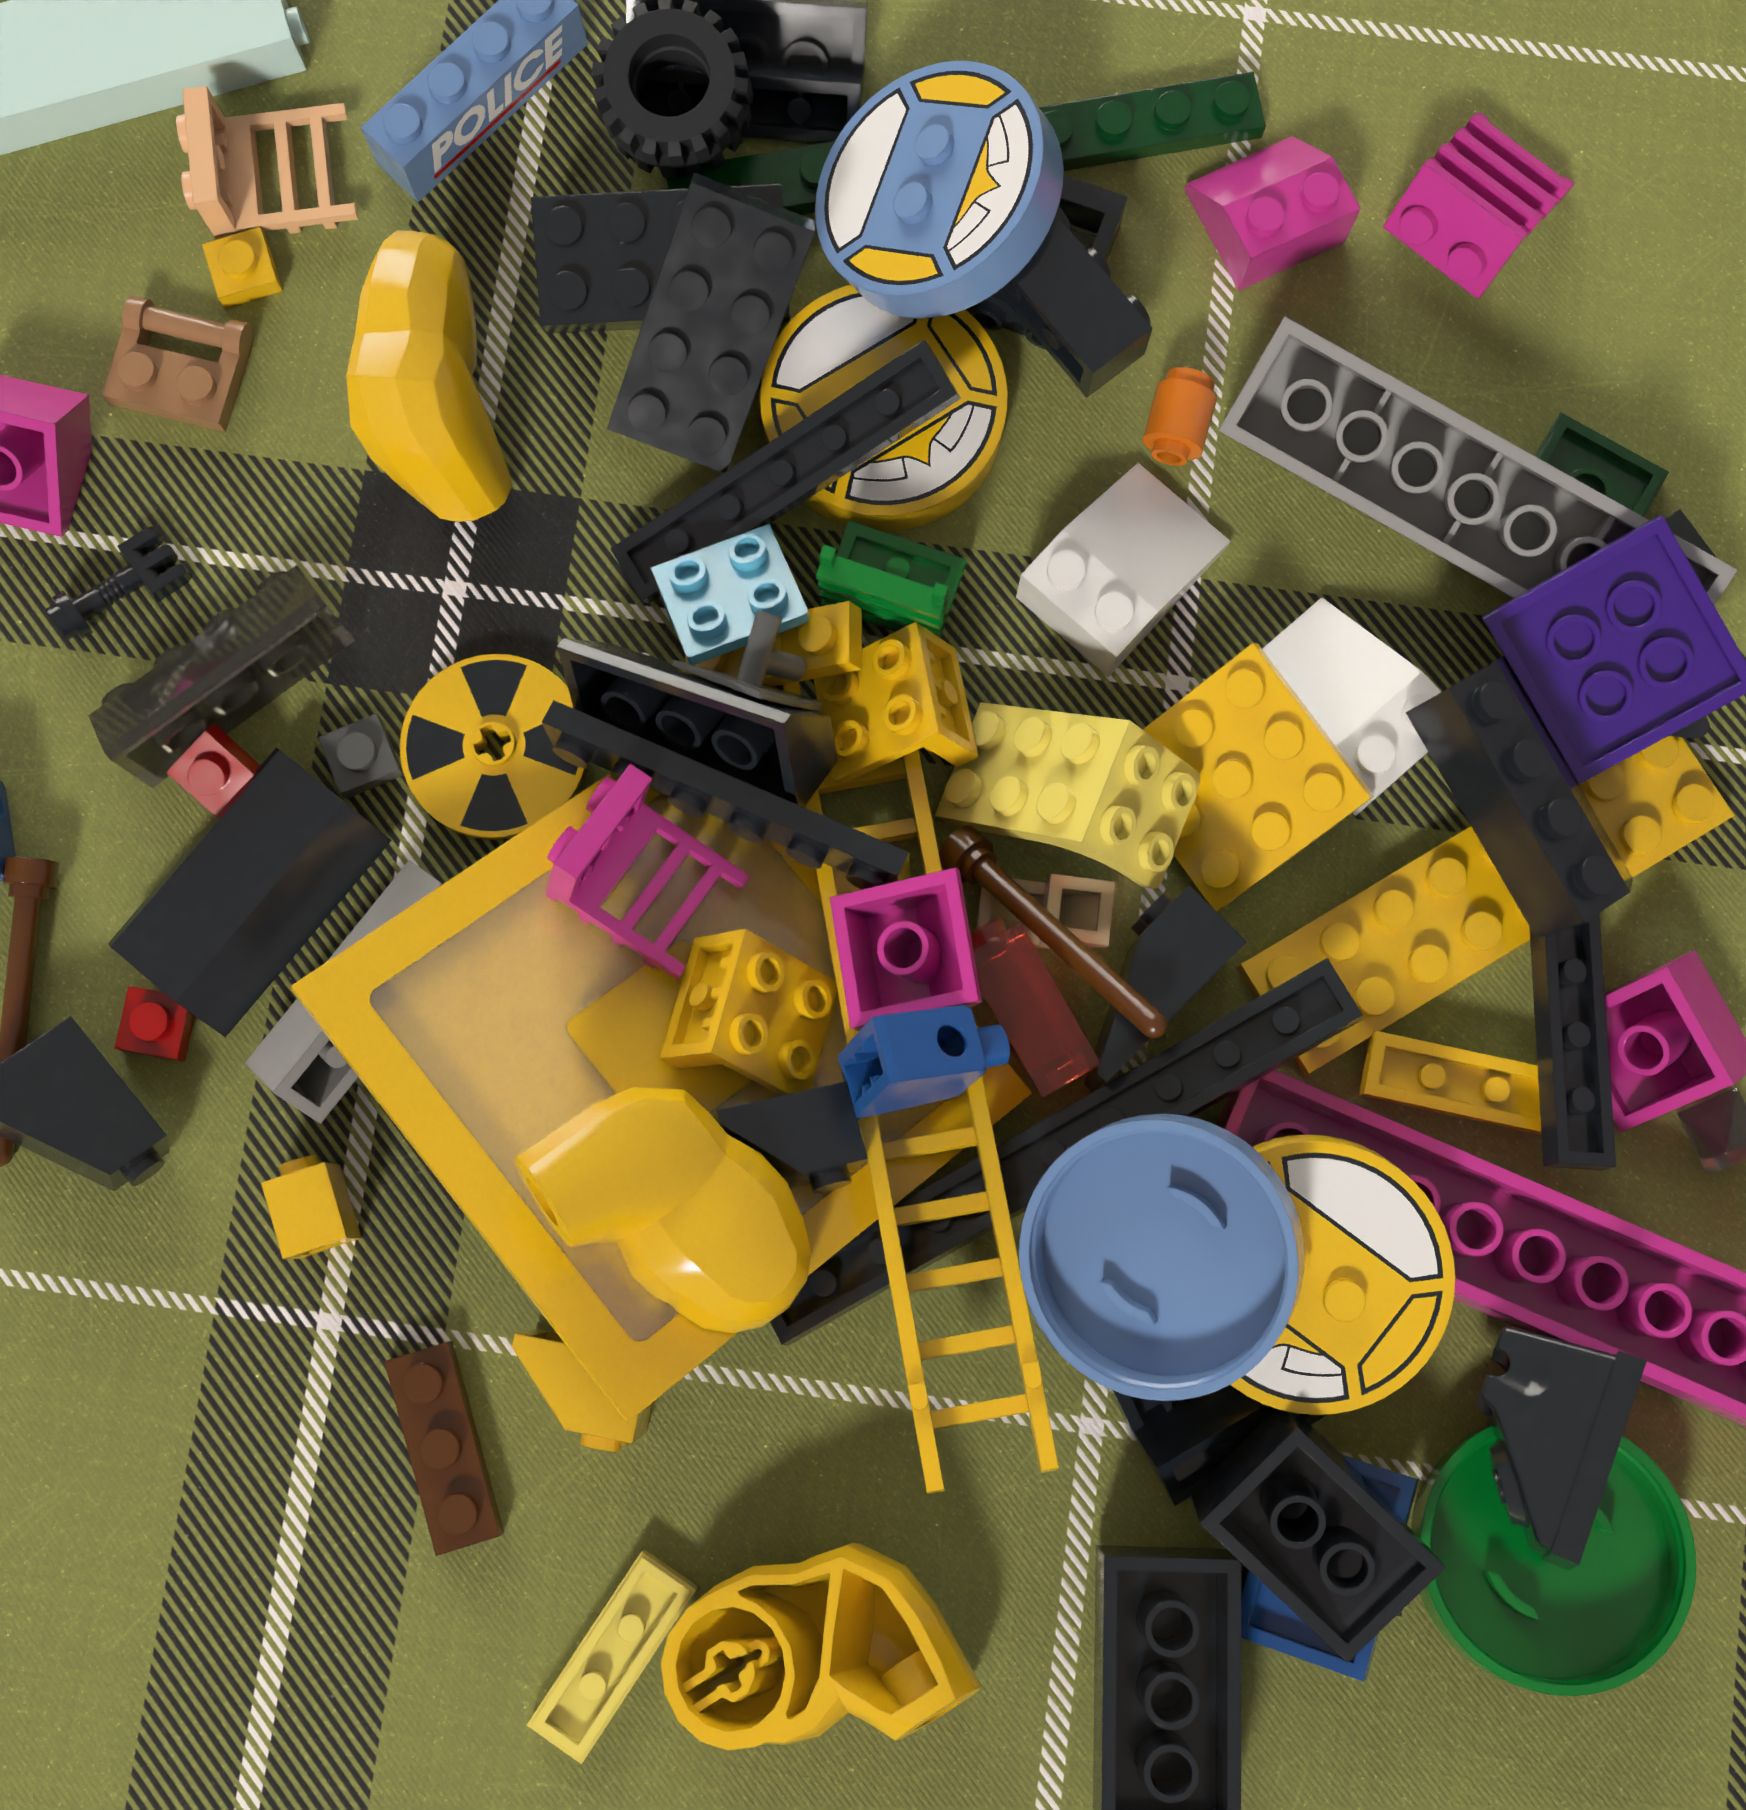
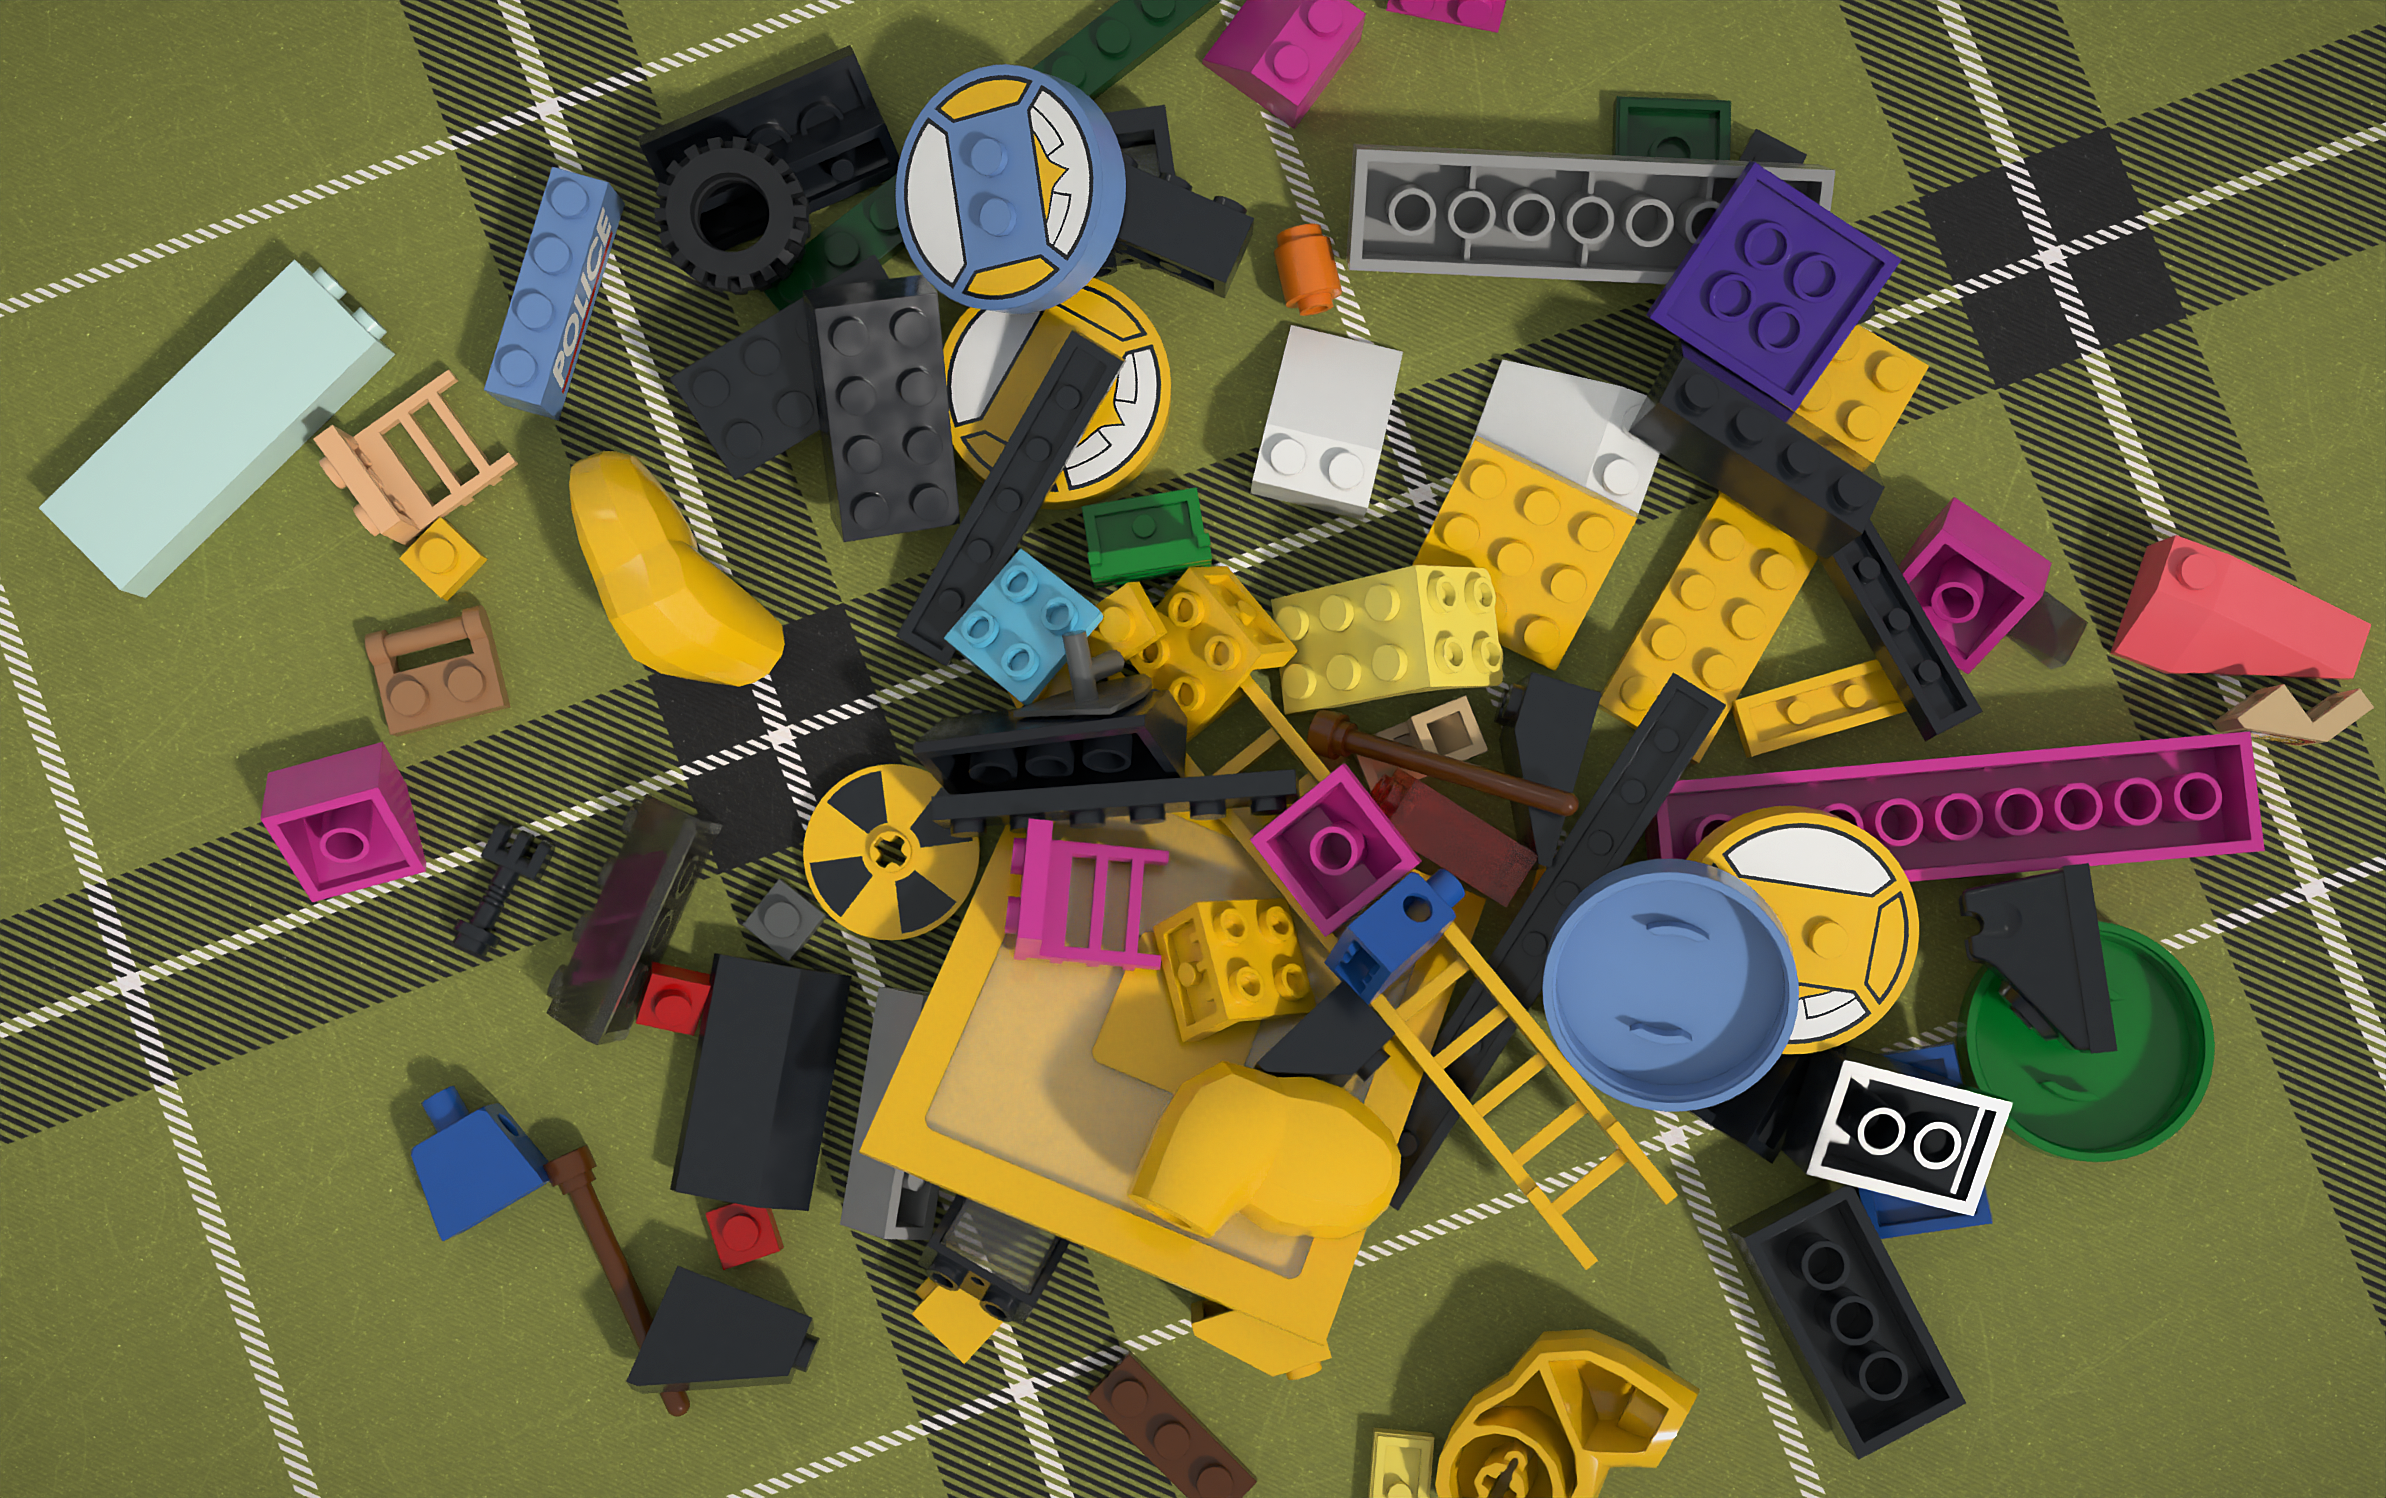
camera: 30 degrees left, 5 degrees up
(366, 1169) = (992, 1258): none -> window

